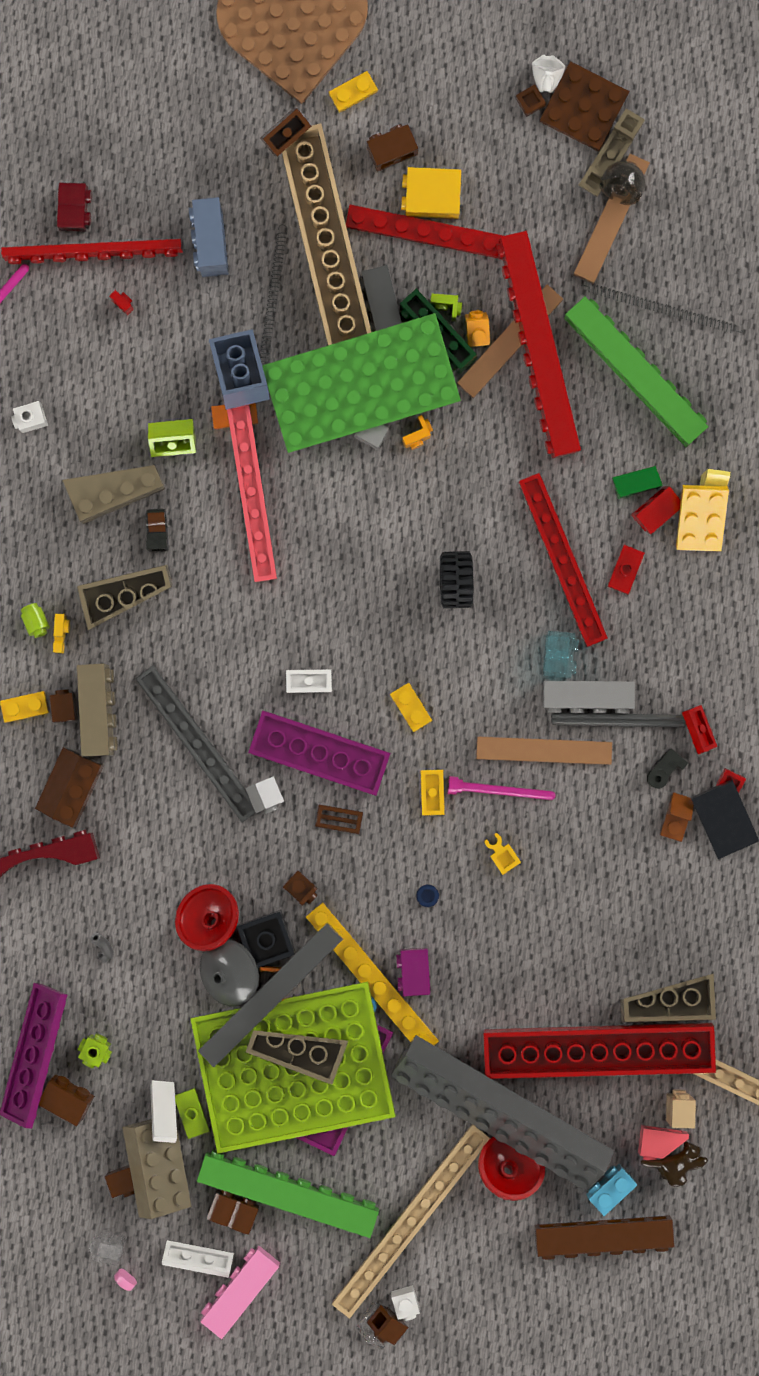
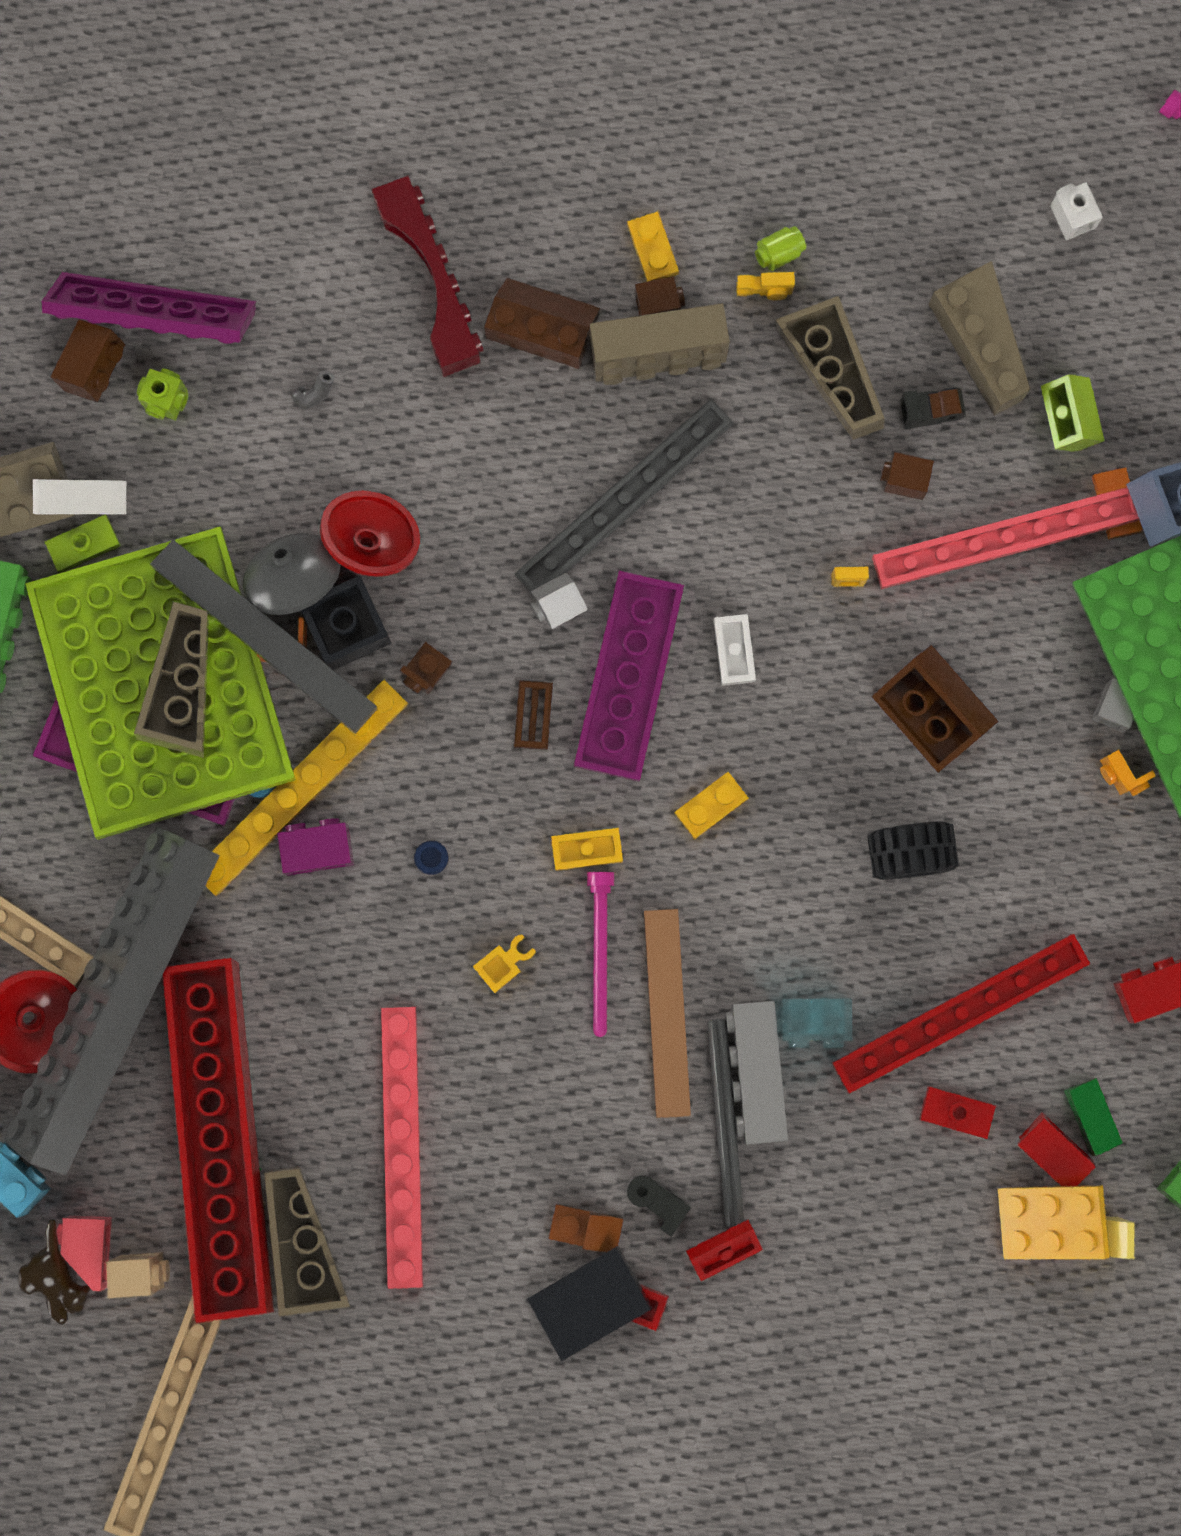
camera: 90 degrees right, 5 degrees down
(202, 553) = (907, 475): none -> reddish brown brick
(267, 599) = (849, 576): none -> yellow tile
(362, 552) = (934, 708): none -> reddish brown slope
(614, 931) = (402, 1148): none -> coral plate

